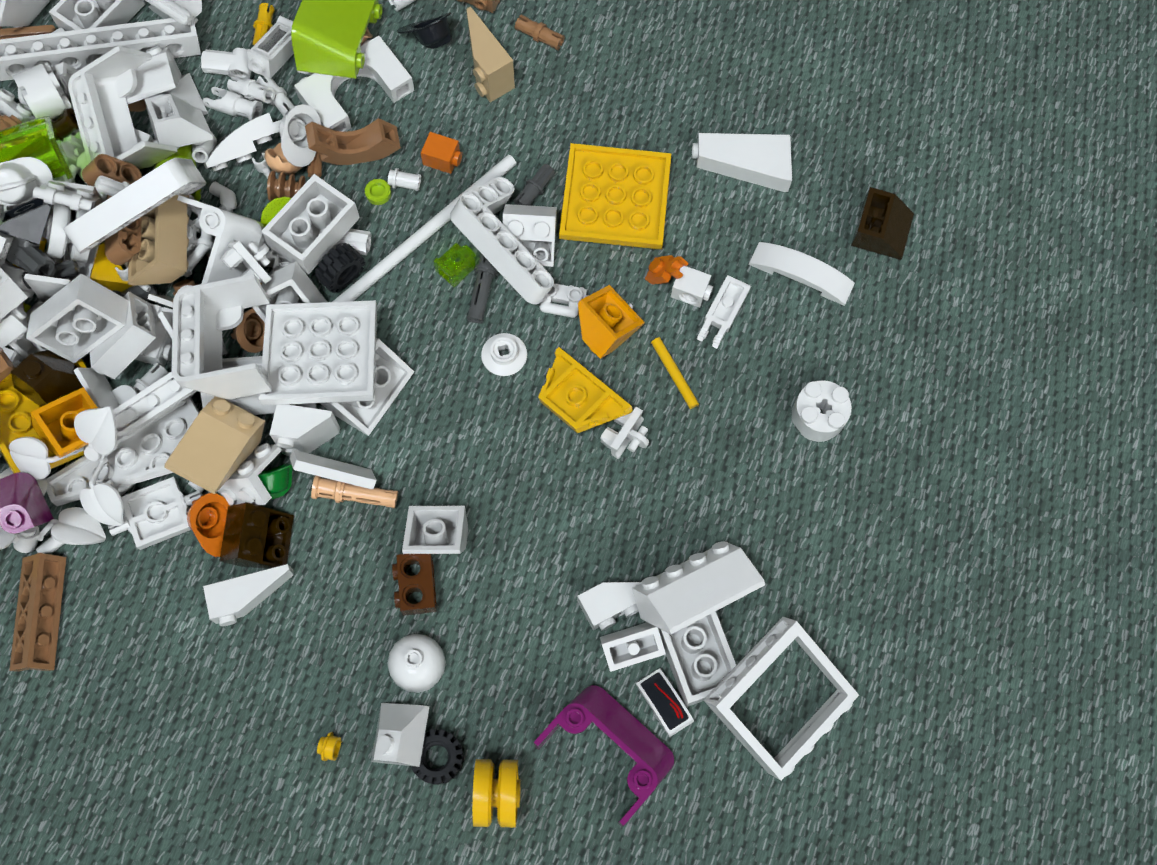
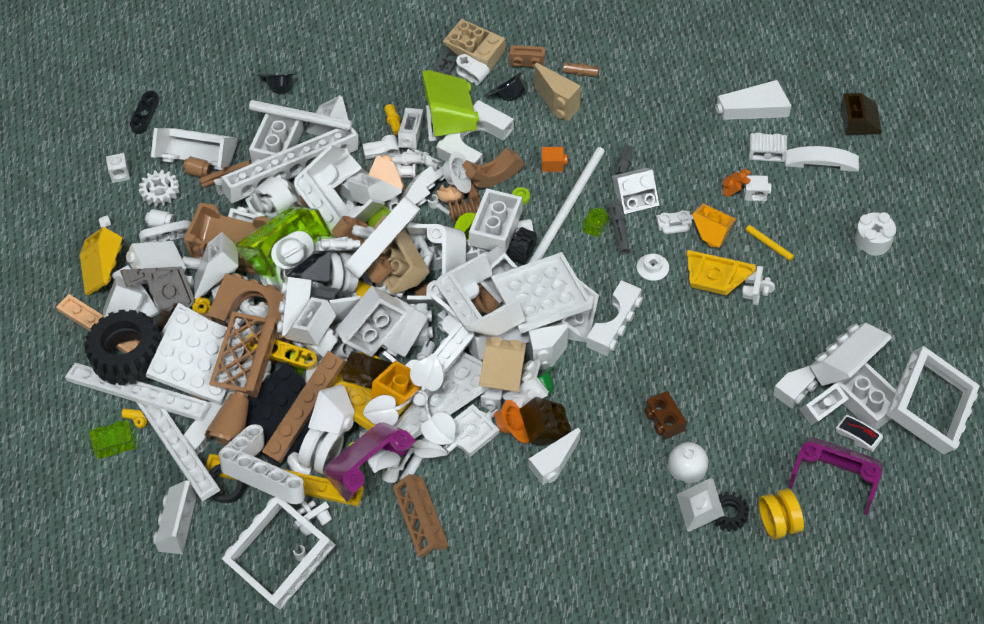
camera: 15 degrees left, 15 degrees down
(212, 103) = (386, 170): none -> light nougat slope
(238, 253) = (465, 249): white hips -> none
(329, 747) = (656, 529): yellow plate -> none
(332, 469) = (580, 362): white tile -> none
(343, 491) = (586, 377): light nougat pin -> none
(390, 437) = (604, 335): none -> white arch
(404, 179) = (534, 183): white pin -> none
(435, 530) = (665, 376): white slope -> none
(477, 221) = (622, 197): white beam -> none
(615, 196) = (680, 150): yellow plate -> none
(724, 308) = (783, 195): white hinge -> none
(734, 229) = (767, 147): none -> white brick

